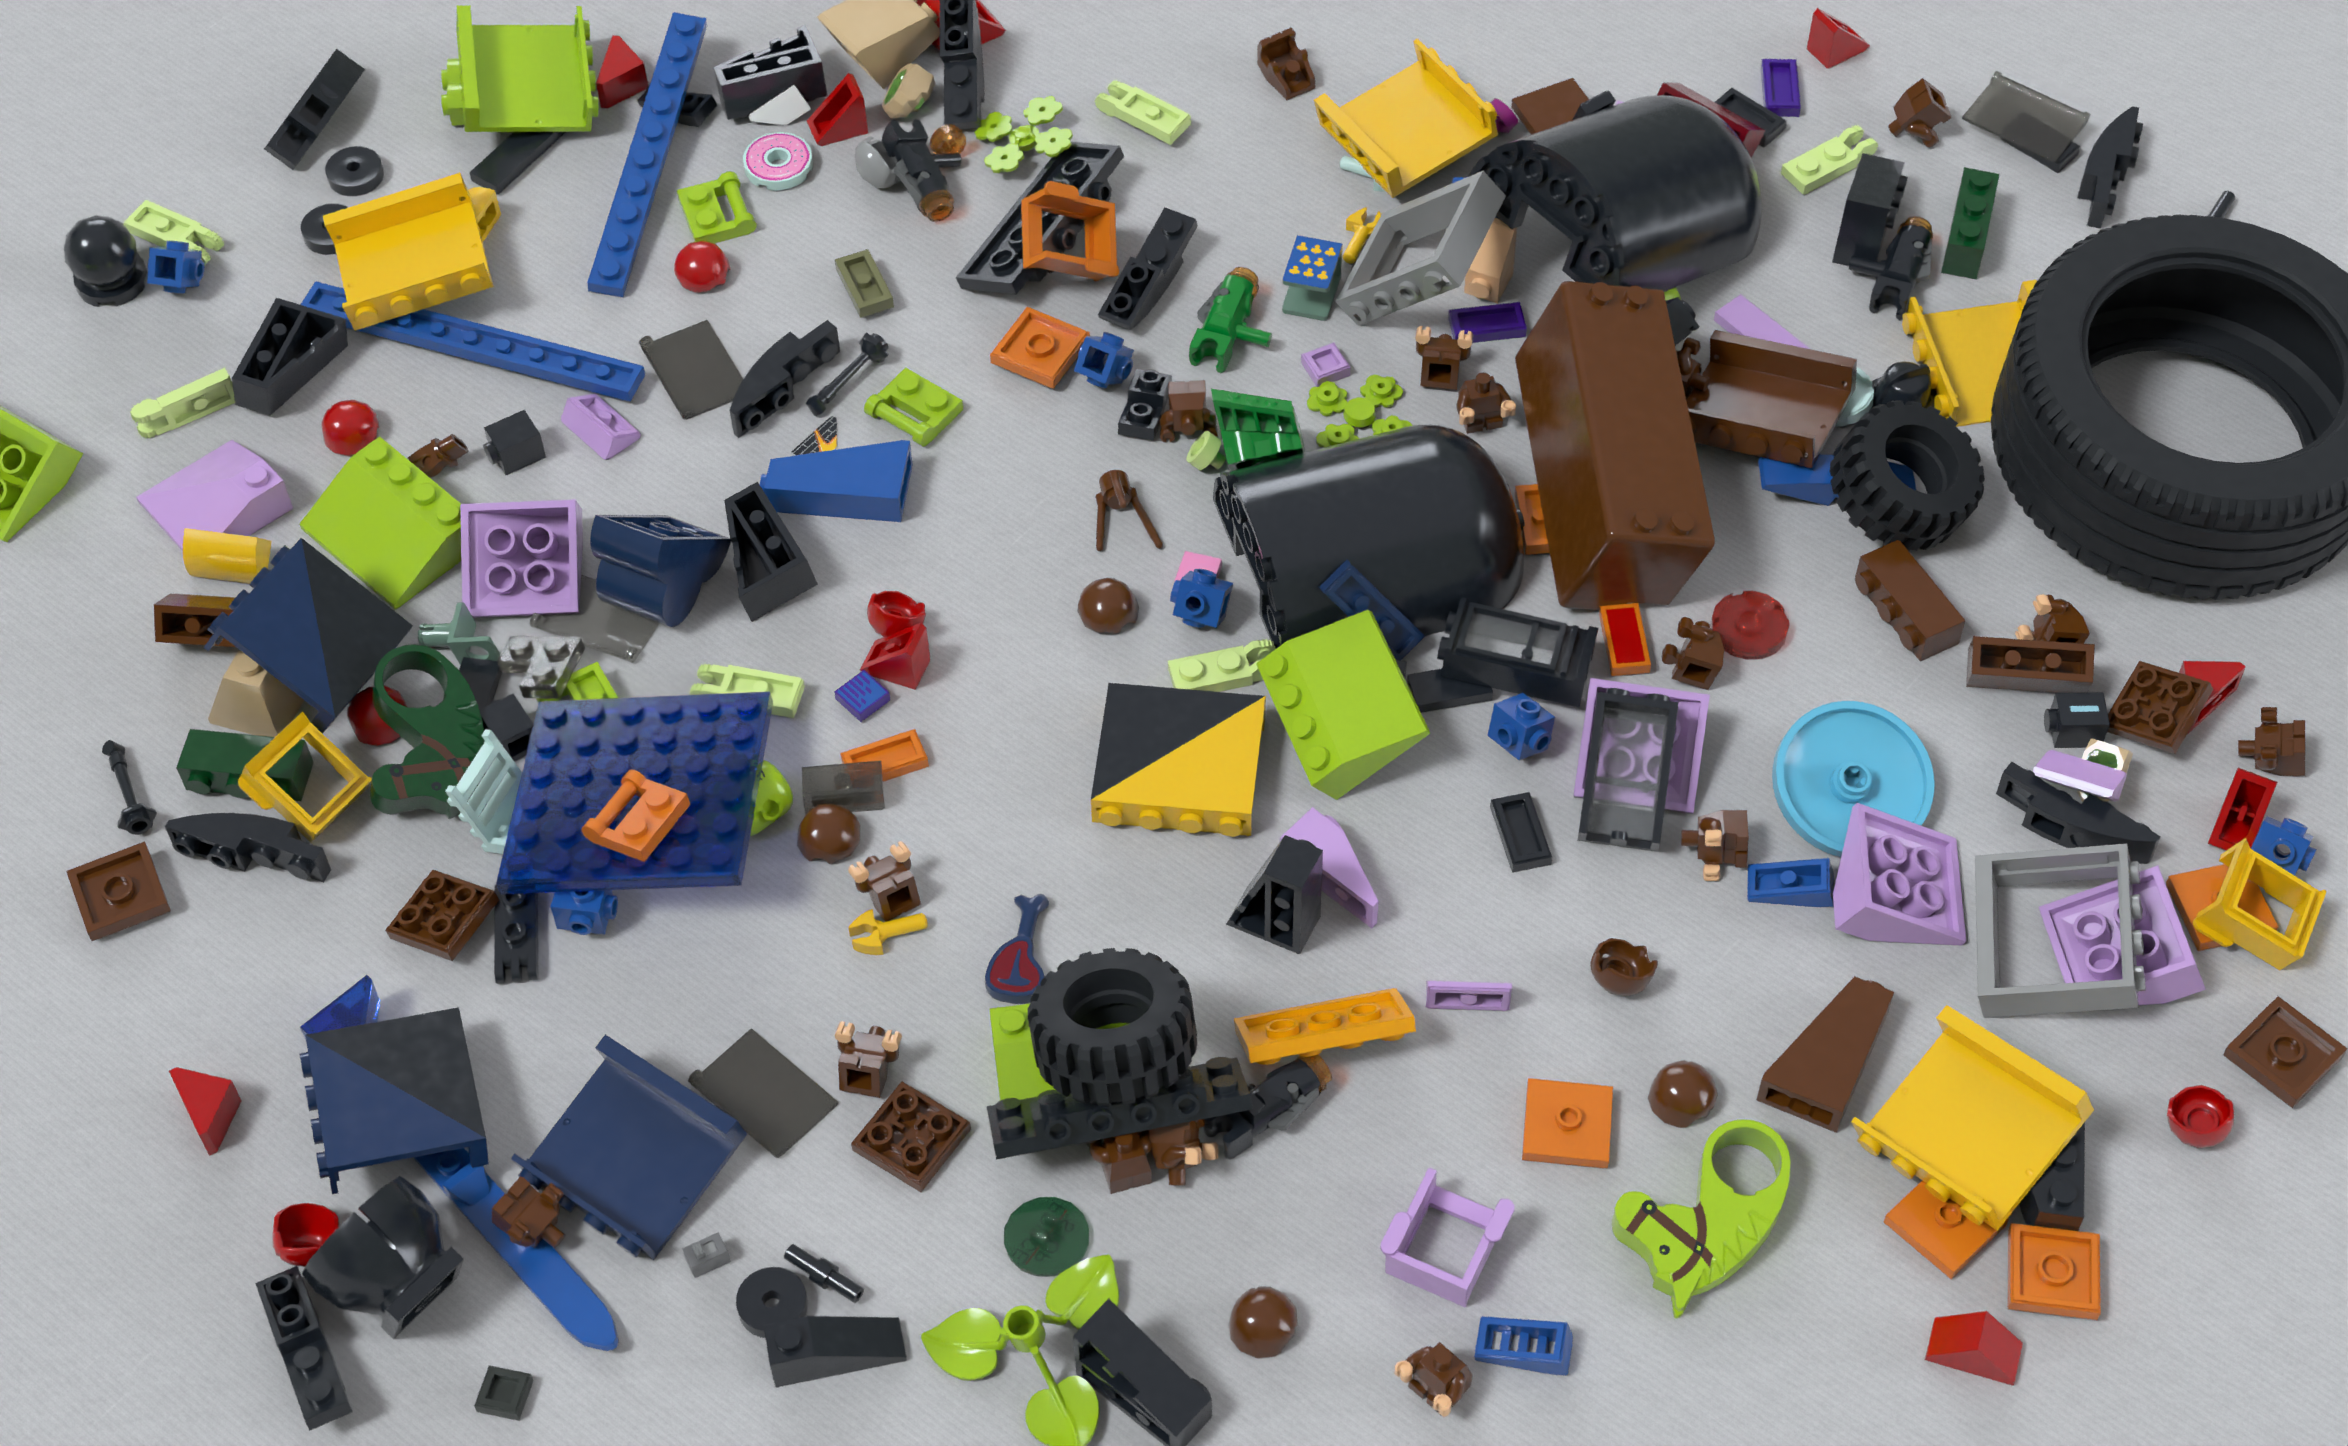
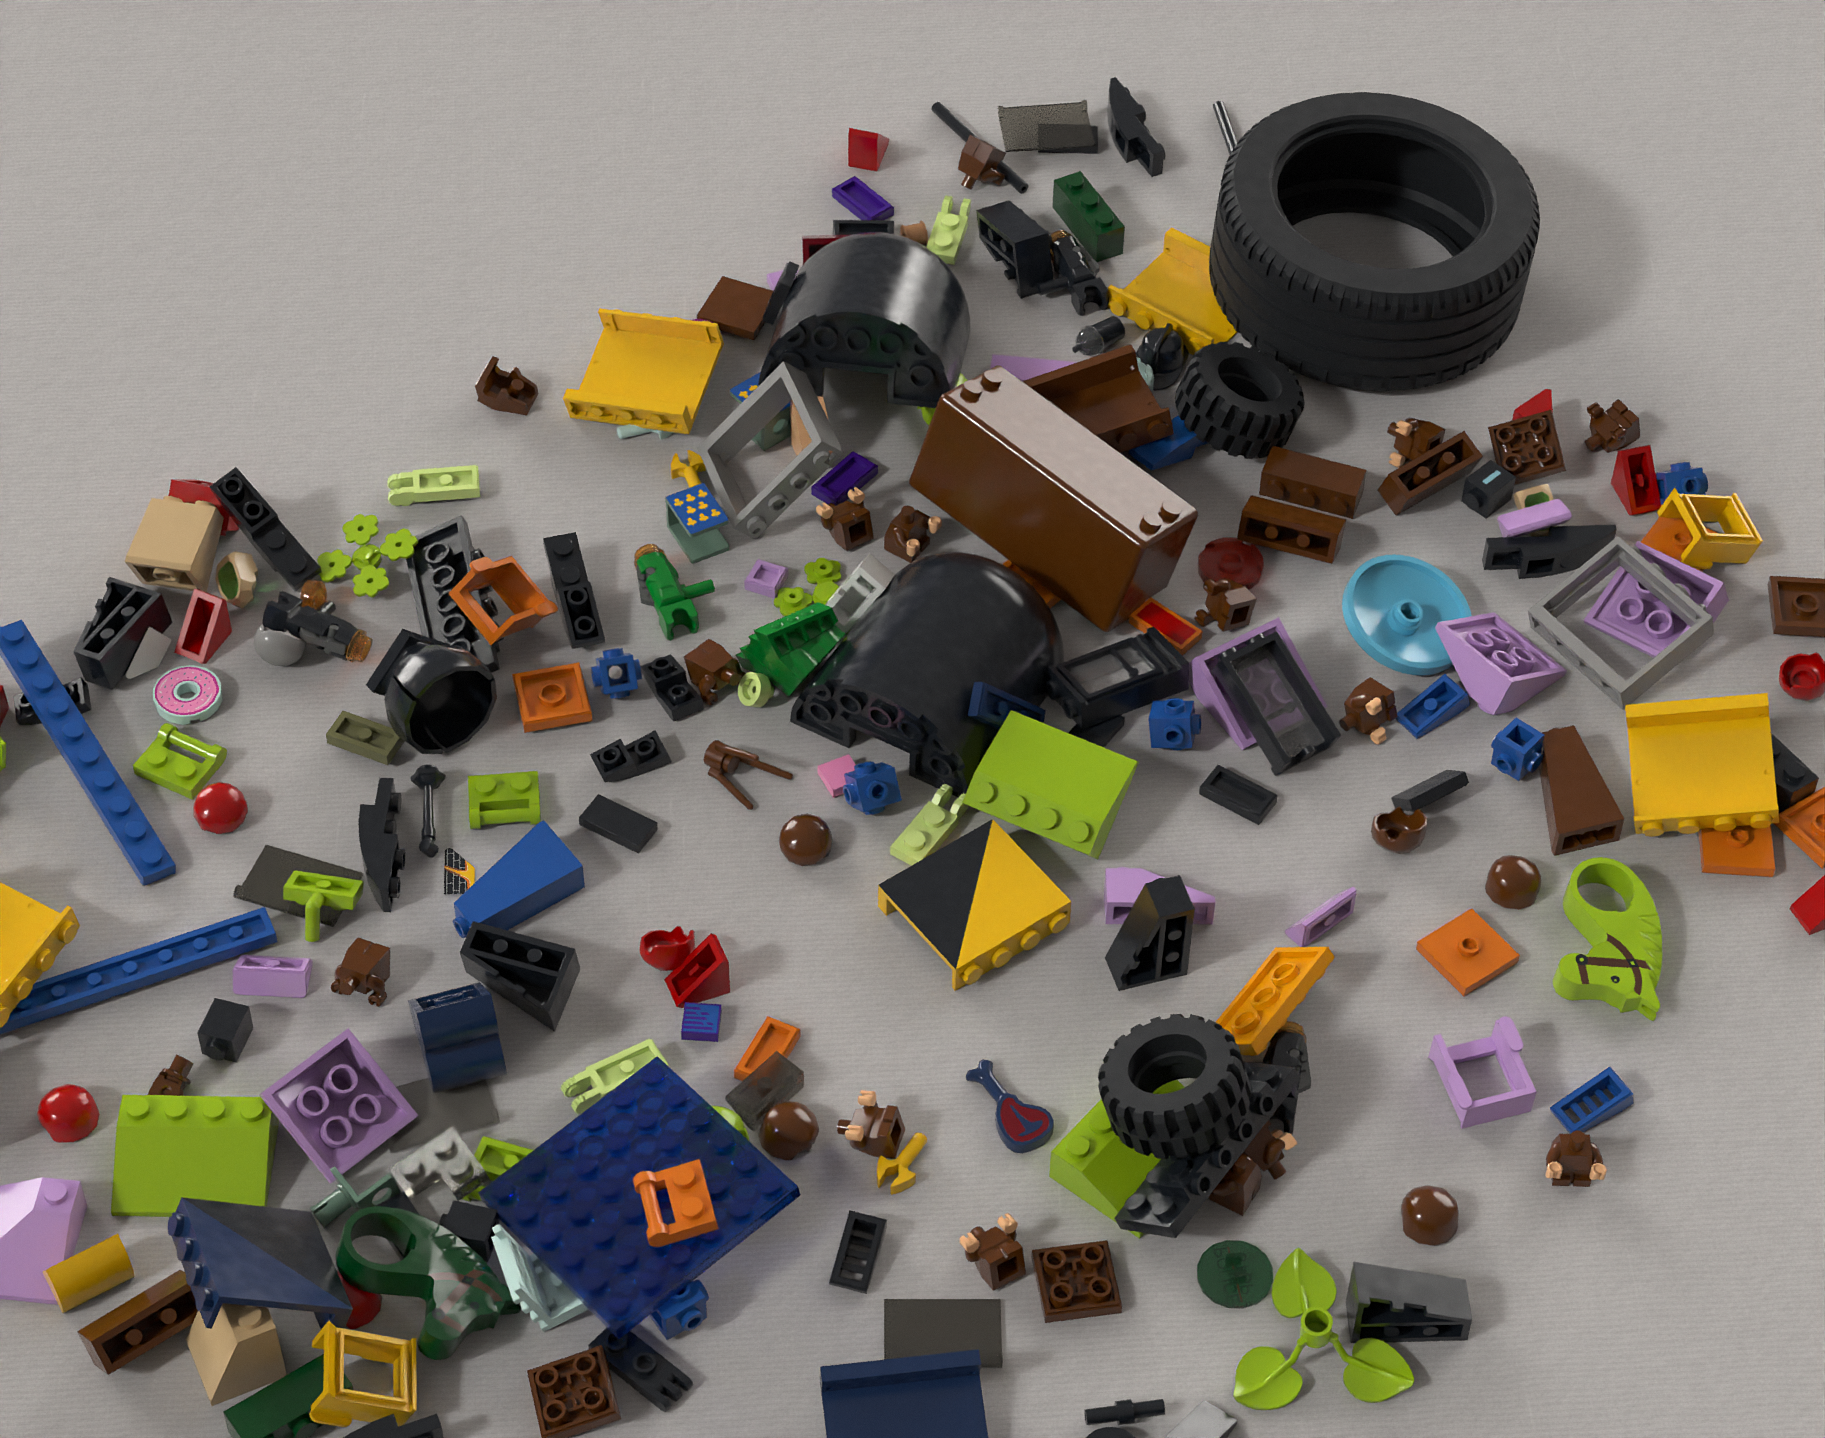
camera: 45 degrees left, 5 degrees down
(656, 466) = (363, 970): none -> reddish brown piece
(696, 381) = (320, 890): none -> lime plate
(772, 956) = (866, 1224): none -> black slope
(934, 266) = (433, 692): none -> black plate
(979, 487) = (618, 823): none -> black tile
(1041, 440) = (627, 761): none -> black slope
(1365, 418) = (859, 591): none -> white piece
(1696, 954) = (1430, 790): none -> black tile
(1789, 143) = (915, 232): none -> medium nougat axle
(1816, 975) = (1517, 749): none -> blue brick
(1834, 628) = (1291, 529): none -> reddish brown brick
(1856, 339) = (1099, 336): none -> piece
(1946, 87) = (964, 133): none -> black piece

